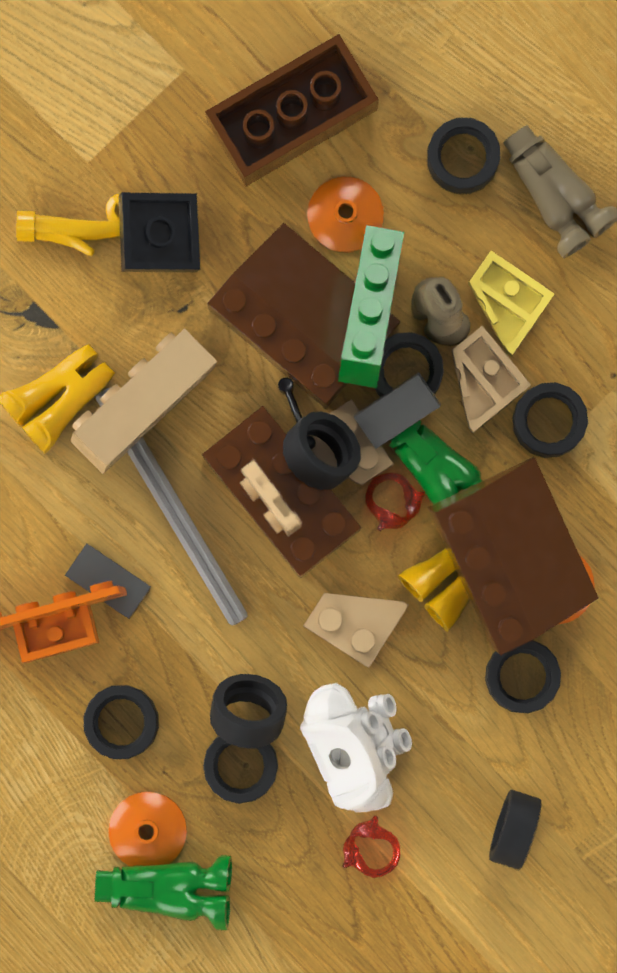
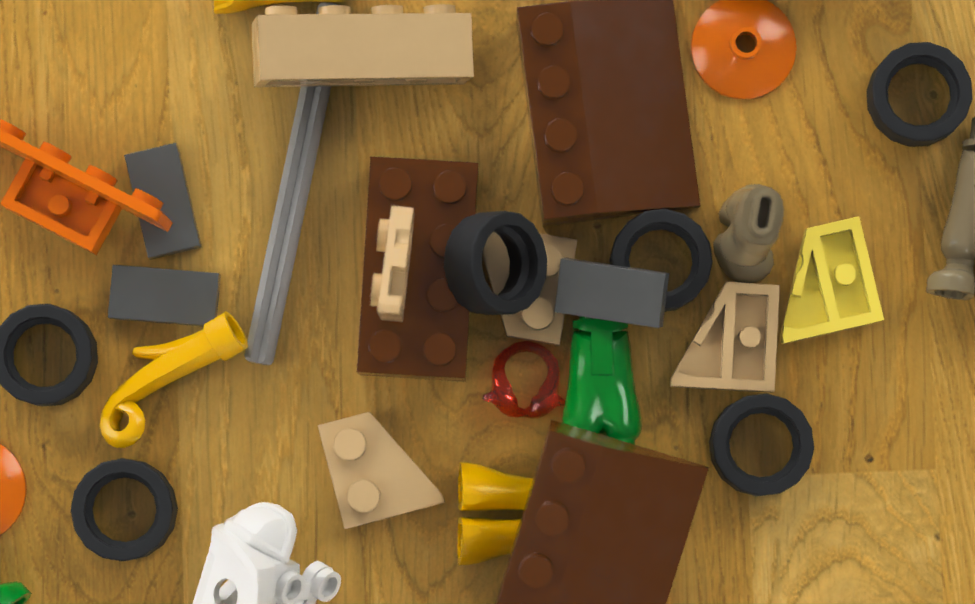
camera: 40 degrees right, 0 degrees up
(156, 631) = (163, 295): none -> dark grey tile
(192, 663) = (218, 340): none -> yellow plant
(248, 732) = (157, 484): black tyre -> none
(286, 387) = (522, 168): black hinge -> none
(371, 307) = (680, 161): brick -> none

